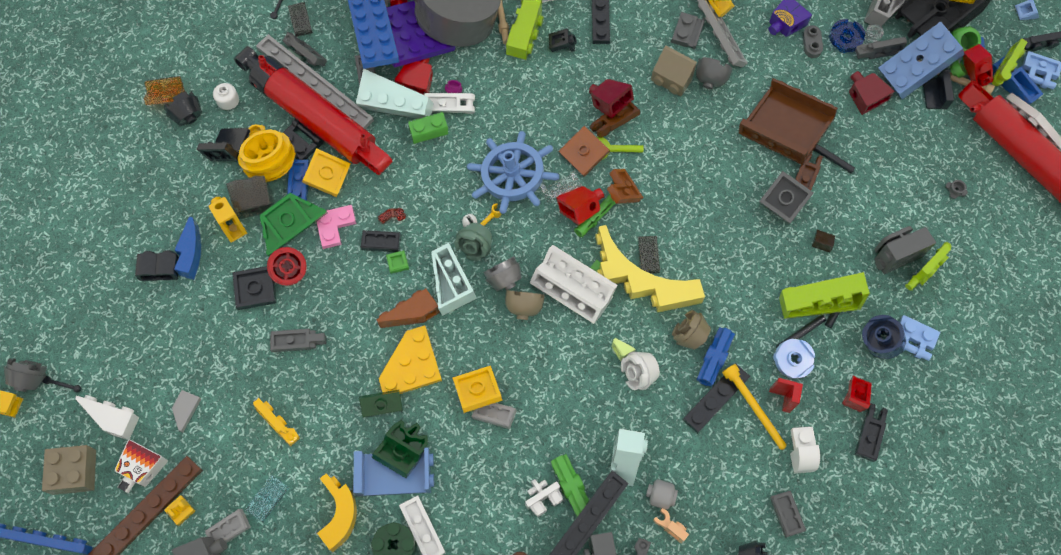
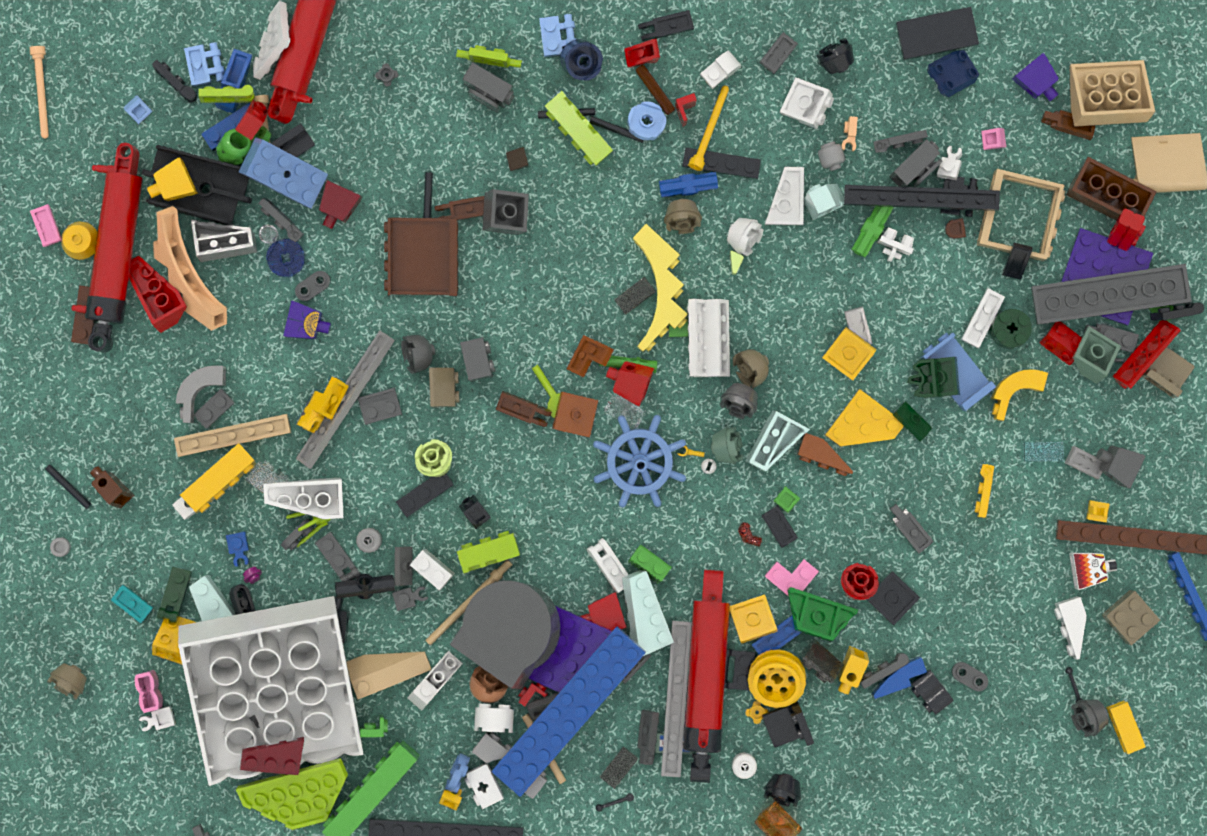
camera: 125 degrees left, 20 degrees up
(143, 307) = (970, 676): none -> dark grey plate
(184, 409) = (1024, 572): light grey tile -> none
(205, 241) = (884, 670): none -> dark grey plate
(453, 87) = (592, 573): magenta plate -> none
(611, 96) = (506, 426): dark red torso -> none
(622, 34) = (433, 458): none -> yellowish green cone
(642, 420) = (789, 199): none -> white wing
(678, 106) = (477, 360): none -> dark grey brick
(724, 506) = (807, 103): none -> white plate
(823, 385) = (655, 89): none -> reddish brown axle

